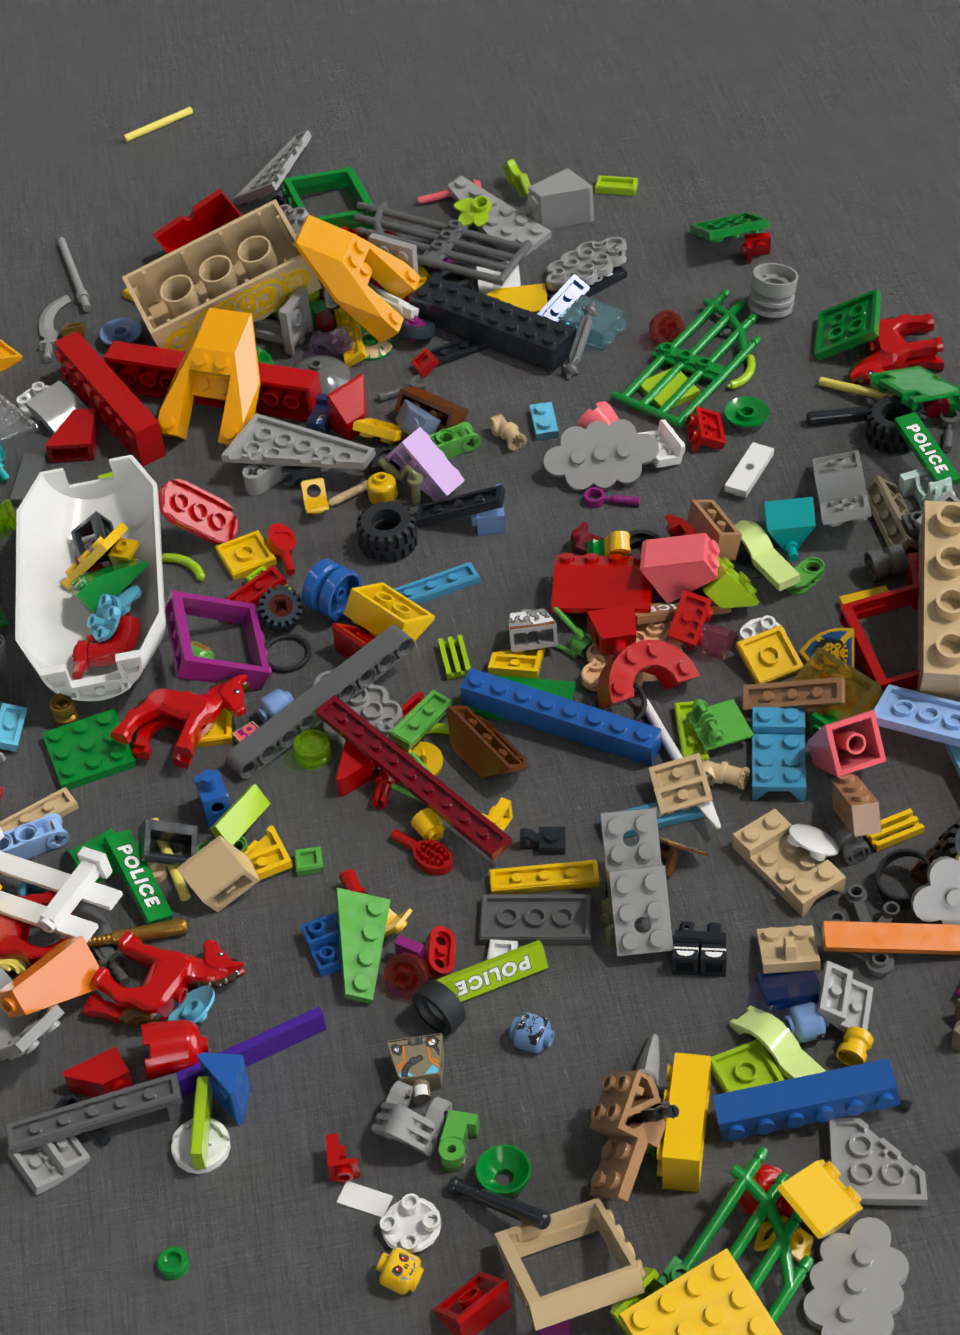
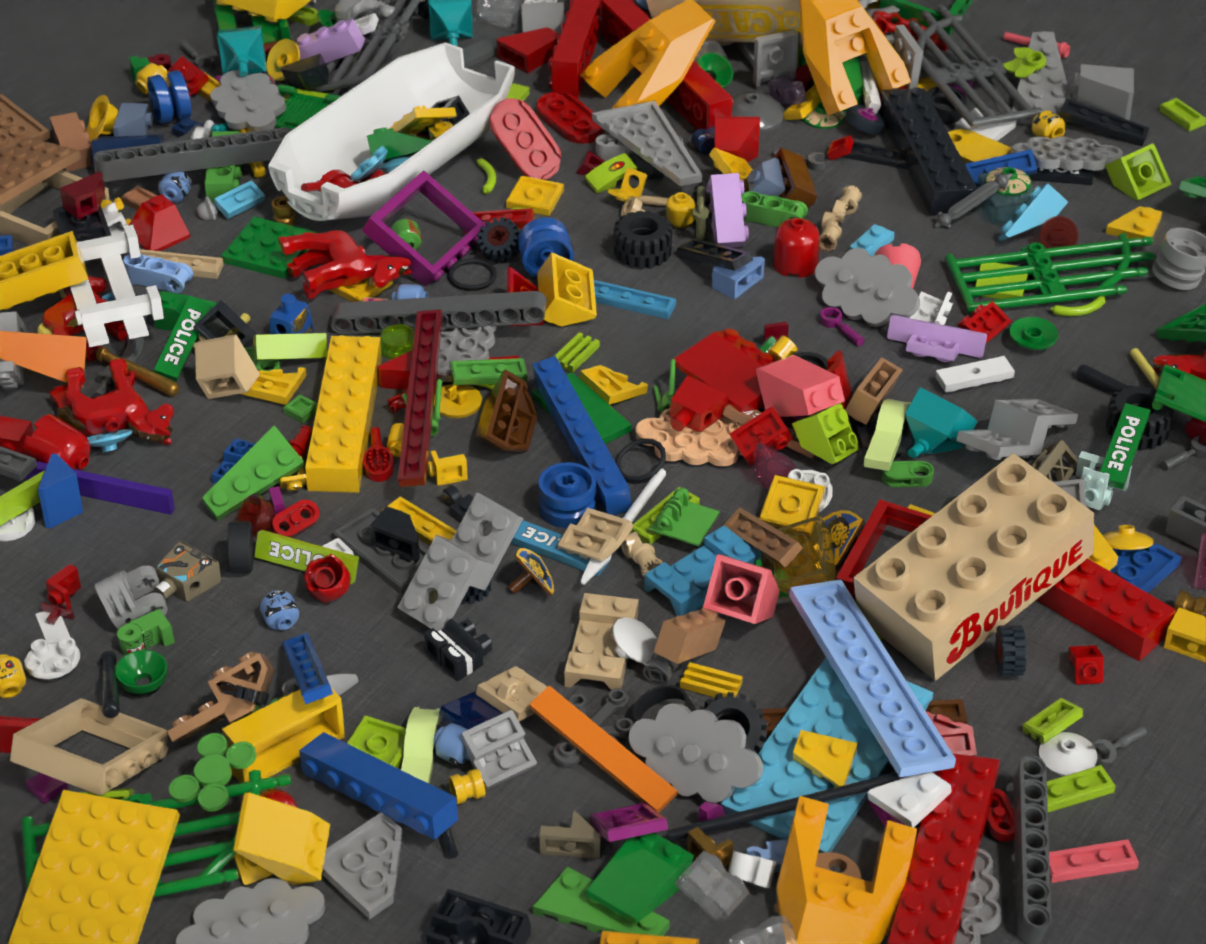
camera: 40 degrees right, 5 degrees down
(200, 471) = (568, 117): none -> red tile
(255, 501) = (588, 163): none -> dark red slope
(282, 543) = (566, 201): red piece -> none
(284, 496) = (609, 172): none -> lime slope
(340, 513) = (631, 205): none -> tan tile
(356, 1184) = (56, 612): none -> dark red piece
(357, 837) = (344, 414): none -> yellow brick
(490, 401) = (848, 202): none -> tan connector
(509, 460) = (796, 248): none -> red cylinder
(516, 178) = (1102, 54): lime tile -> none
(532, 630) = (642, 367): light grey torso -> none
(536, 977) = (327, 578): none -> red hair
(542, 898) = (395, 533): none -> black slope
(546, 251) = (1048, 125): none -> yellow head
(574, 312) = (1018, 183): none -> dish
(579, 223) = (1104, 122): none -> black tile
(614, 770) = (566, 493): none -> blue wheel
(634, 319) = (1043, 205): none -> medium azure slope
(645, 1056) = (307, 668): none -> blue tile
(648, 656) = (675, 429): red brick -> none
(652, 247) = (1139, 173): none -> lime slope
(691, 463) = (935, 339): none -> lavender bracket
(697, 286) = (1136, 224): none -> yellow wing
(704, 1196) = (212, 772): none -> bright green piece

